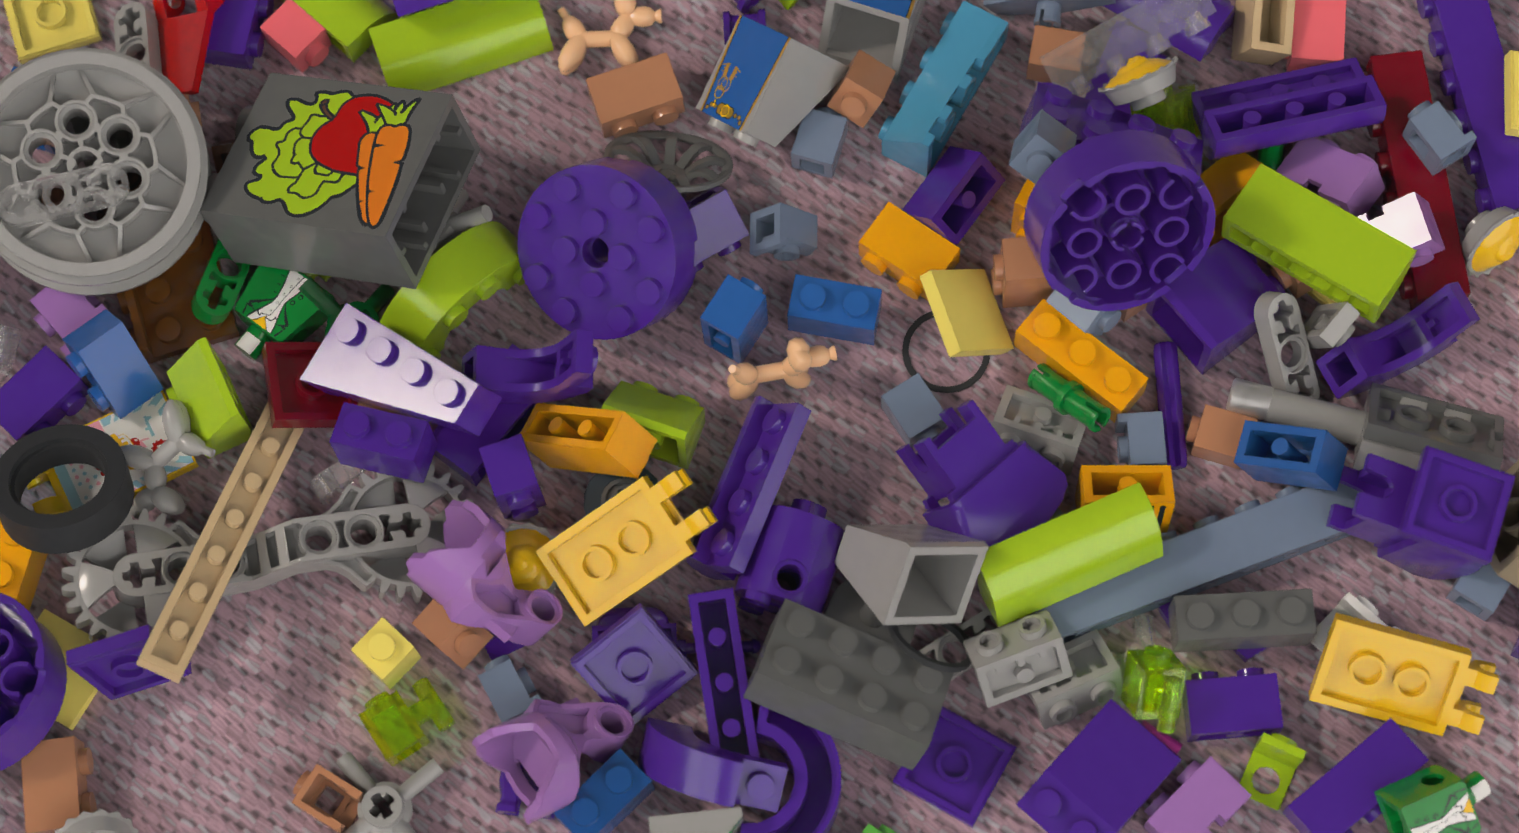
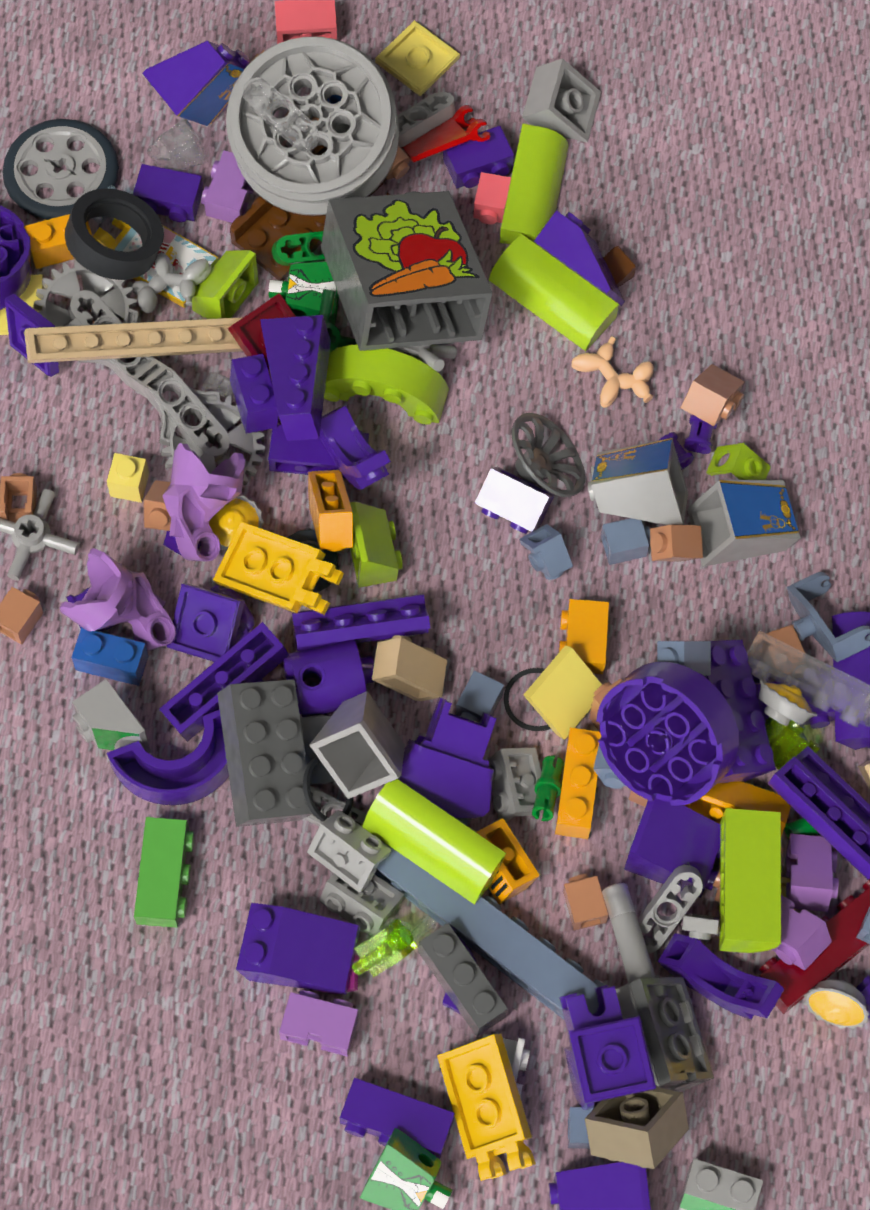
camera: 50 degrees right, 5 degrees down
(112, 364) = (211, 217): blue brick -> none
(398, 727) = (88, 509): clear neon green brick -> none
(507, 688) = (149, 558): sand blue brick -> none
(513, 478) = (281, 483): dark purple brick -> none
(599, 210) = (462, 448): dark purple brick -> none
(636, 96) = (583, 414): nougat brick -> none
(695, 768) = (158, 705): dark purple arch -> none
(735, 318) = (470, 553): blue brick -> none
(793, 369) = (461, 606): light nougat piece -> none
(834, 309) = (516, 612): blue brick -> none
(835, 465) = (409, 669): none -> tan brick
(944, 88) = (713, 595): dark azure wedge -> none
(955, 193) = (636, 638): dark purple brick -> none
(957, 768) = (261, 857): dark purple tile -> none
(1142, 438) = (550, 852): sand blue brick -> none
(1170, 402) = (588, 858): dark purple axle -> none
(1231, 705) = (403, 1008): dark purple brick -> none
(1281, 756) = (389, 1057): lime bracket -> none
(1291, 455) = (592, 946): blue brick -> none

